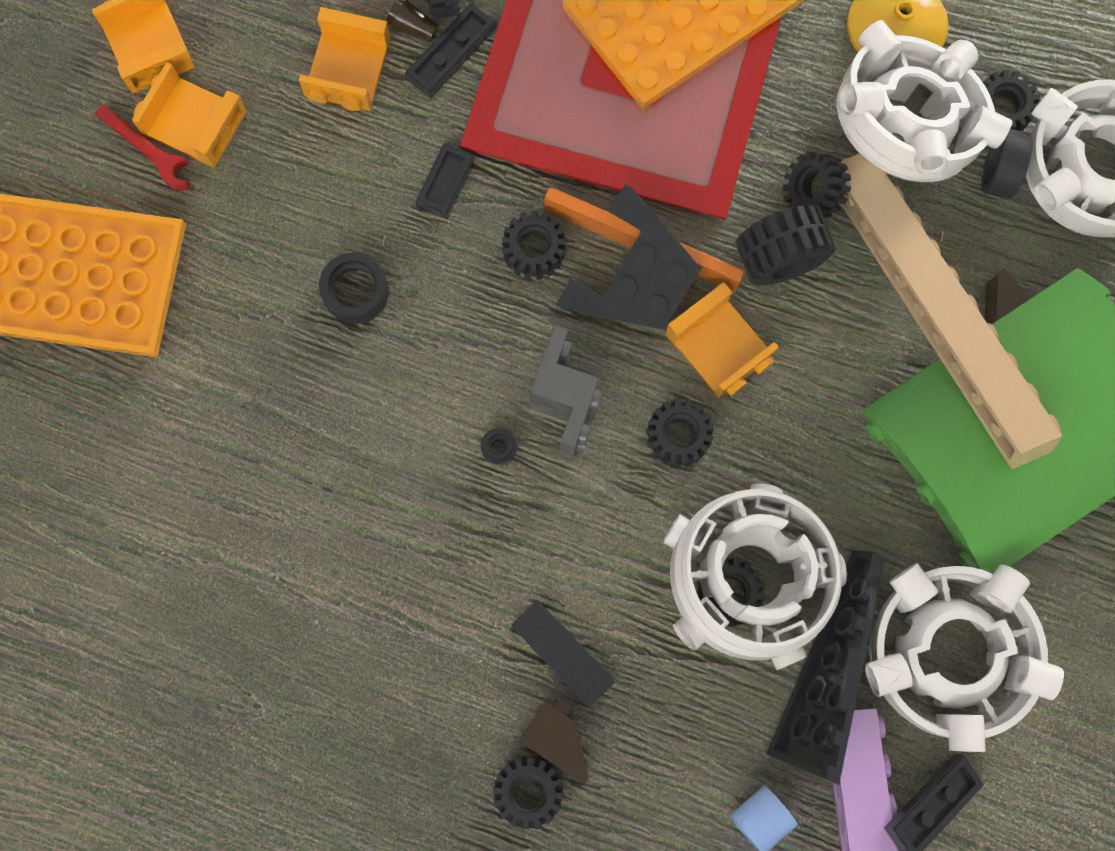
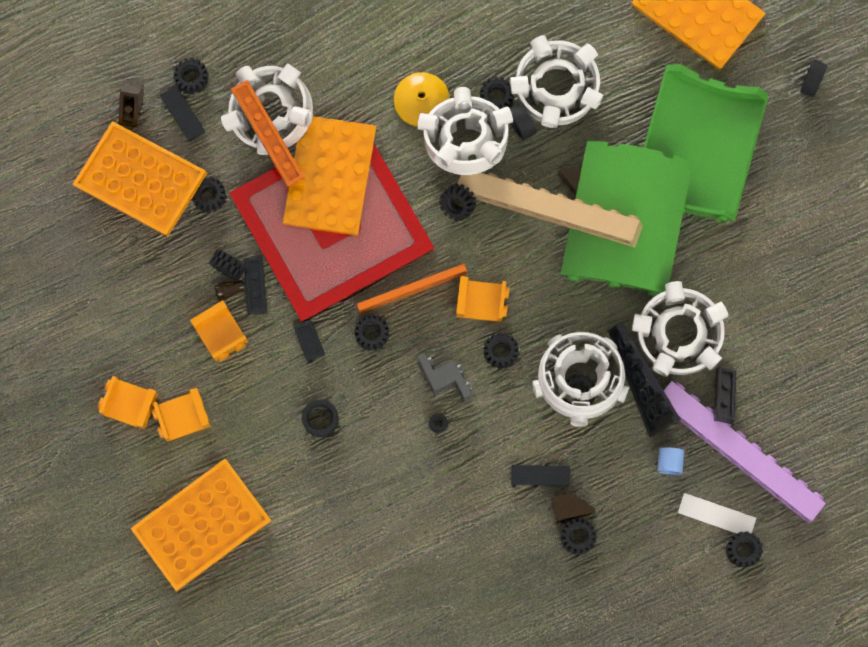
camera: 40 degrees left, 0 degrees up
(166, 163) = (191, 443): red piece -> none
(649, 280) = (431, 301): black wing -> none
(785, 245) = (470, 239): black tyre -> none

